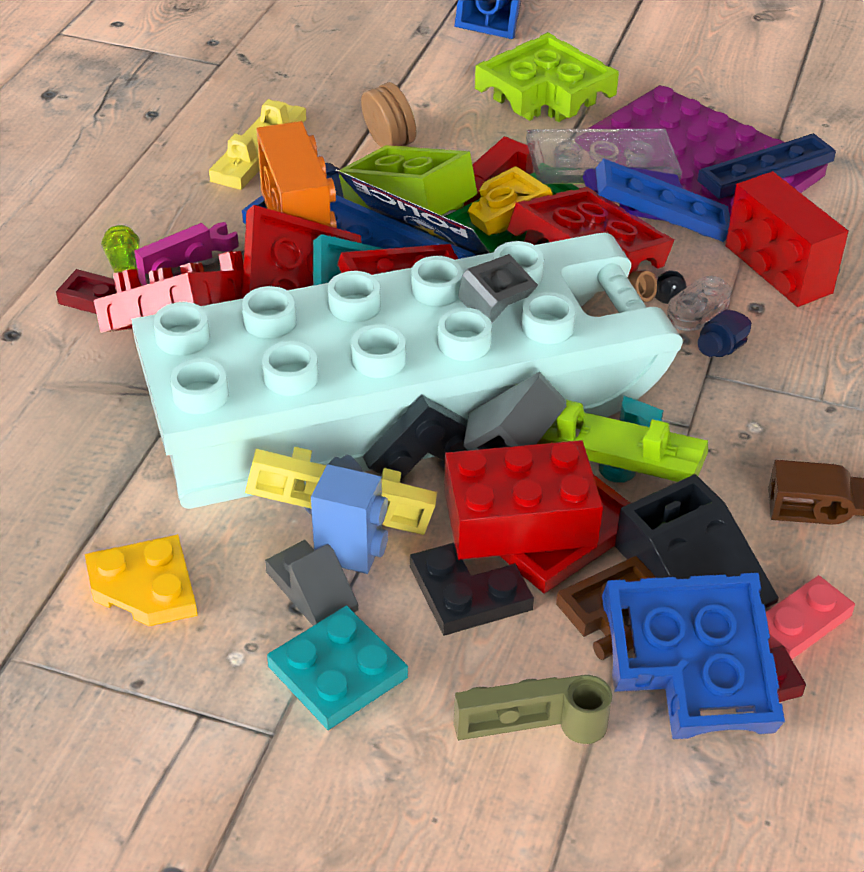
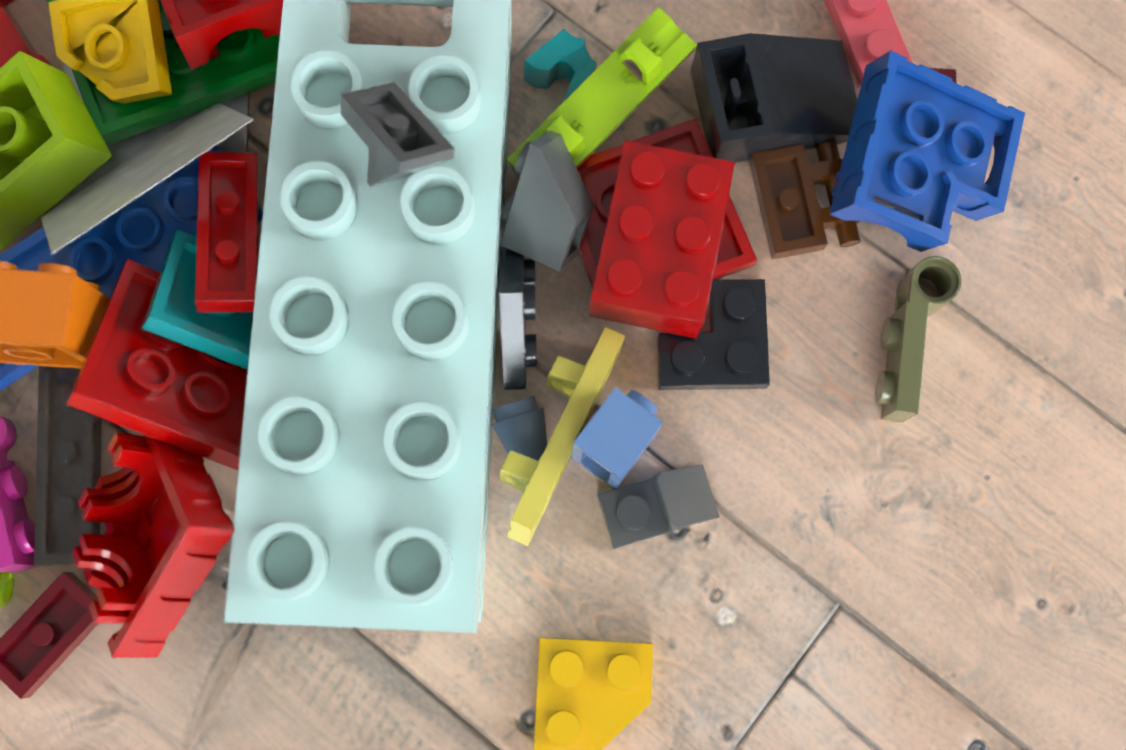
camera: 70 degrees left, 35 degrees up
(337, 667) = (782, 513): teal plate -> none

